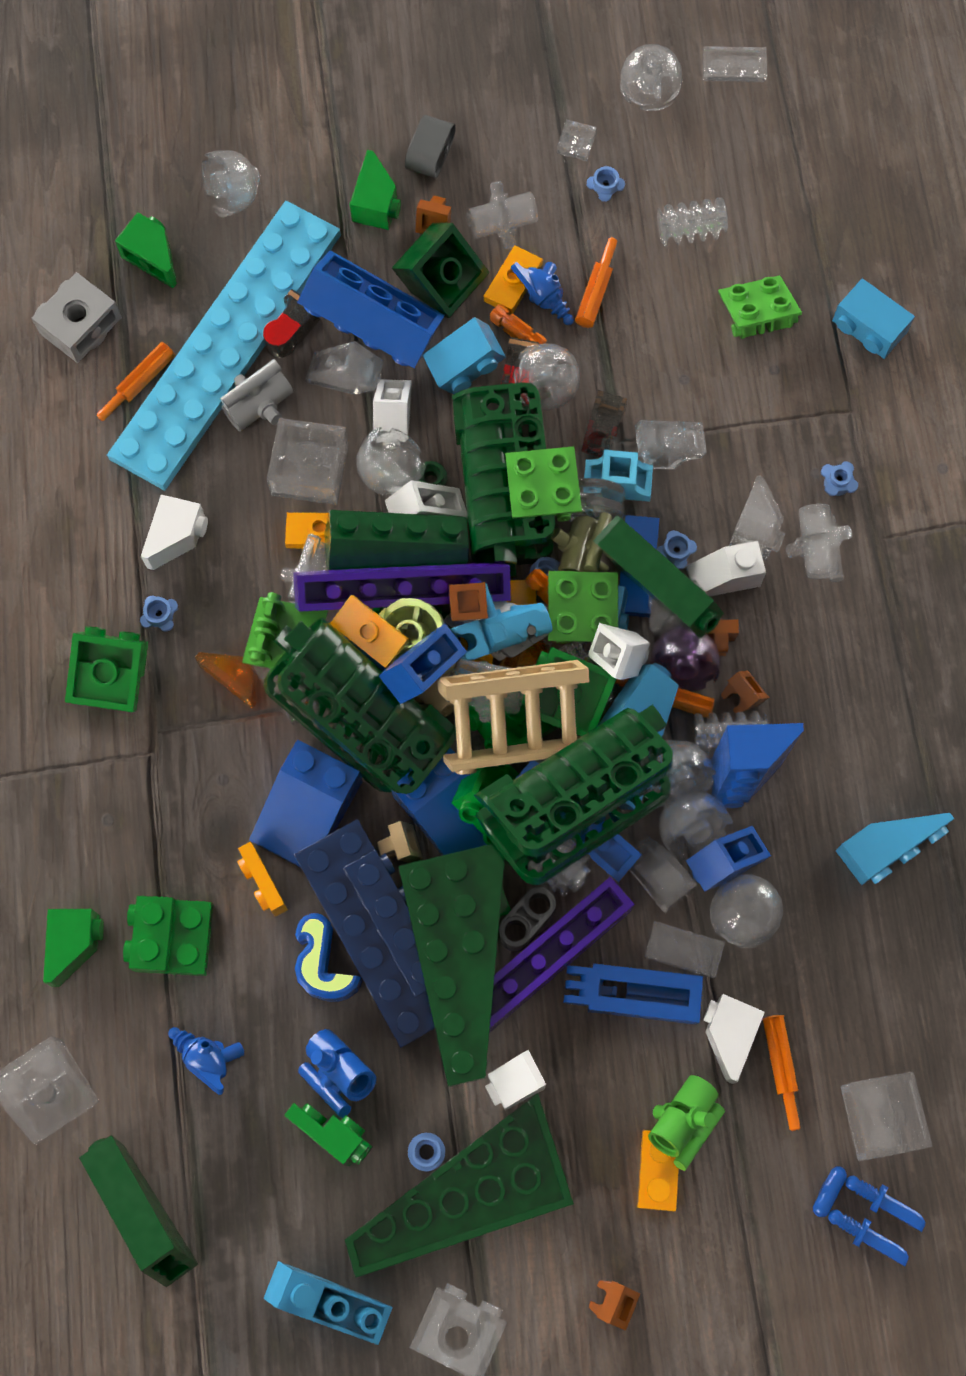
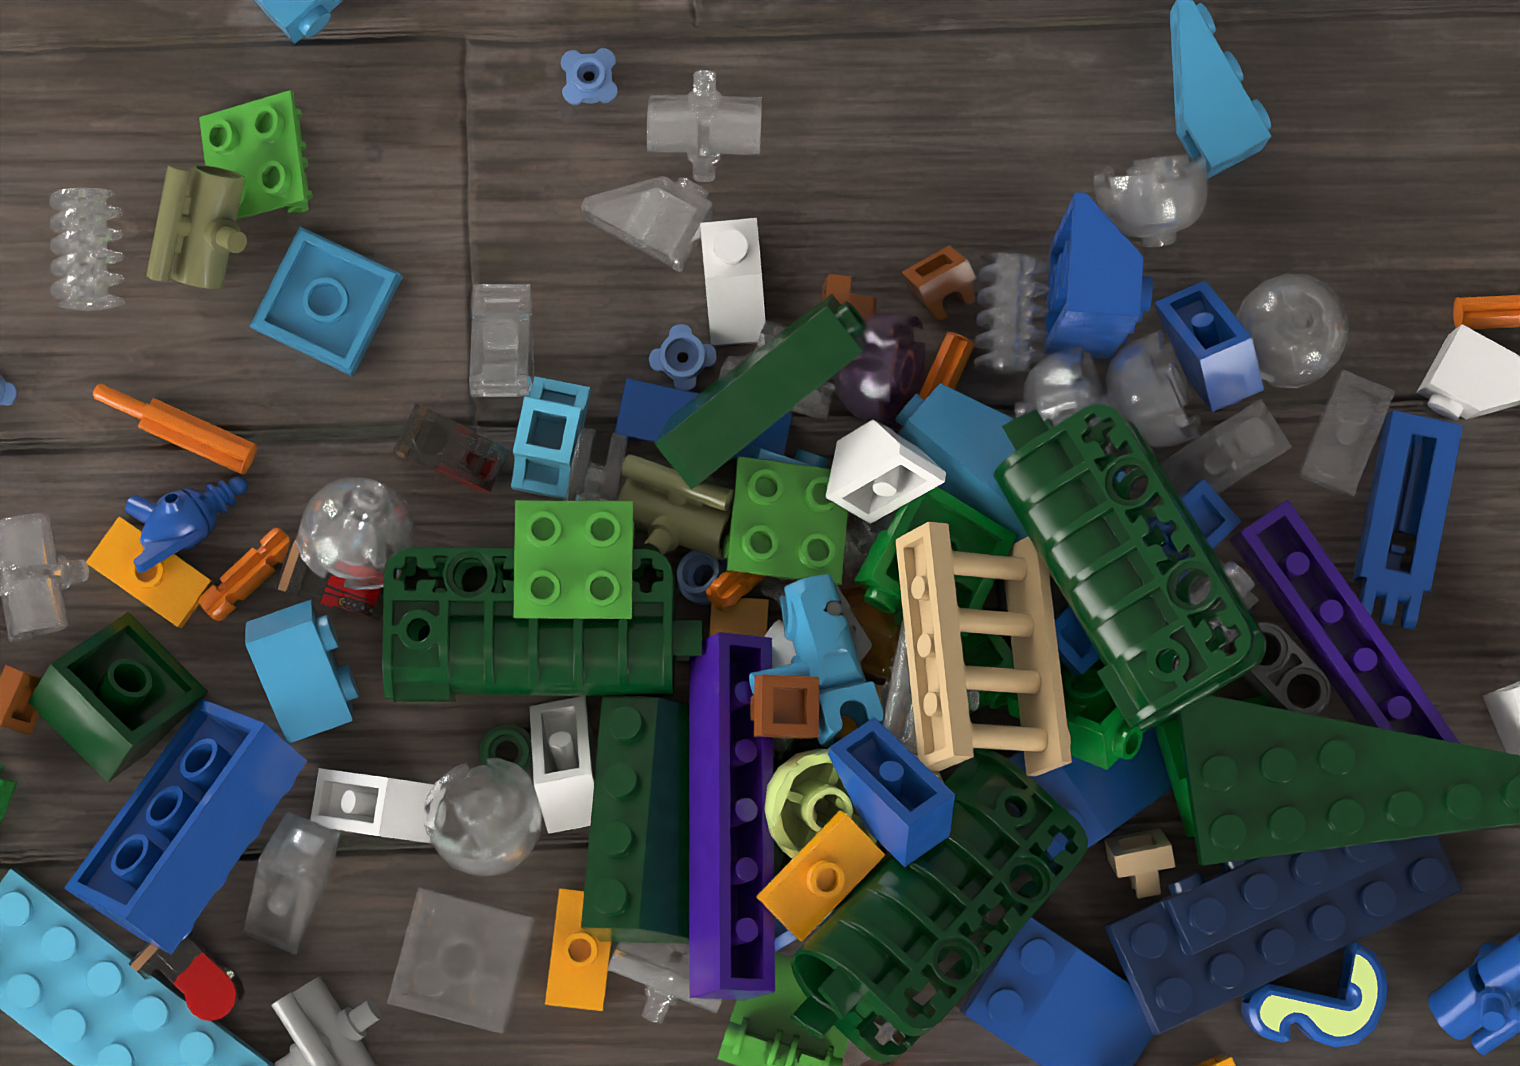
camera: 85 degrees left, 10 degrees up
(682, 353) = (326, 301): none -> dark azure tile
(714, 272) = (197, 226): none -> olive pin
(817, 811) = (1154, 197): none -> clear cylinder

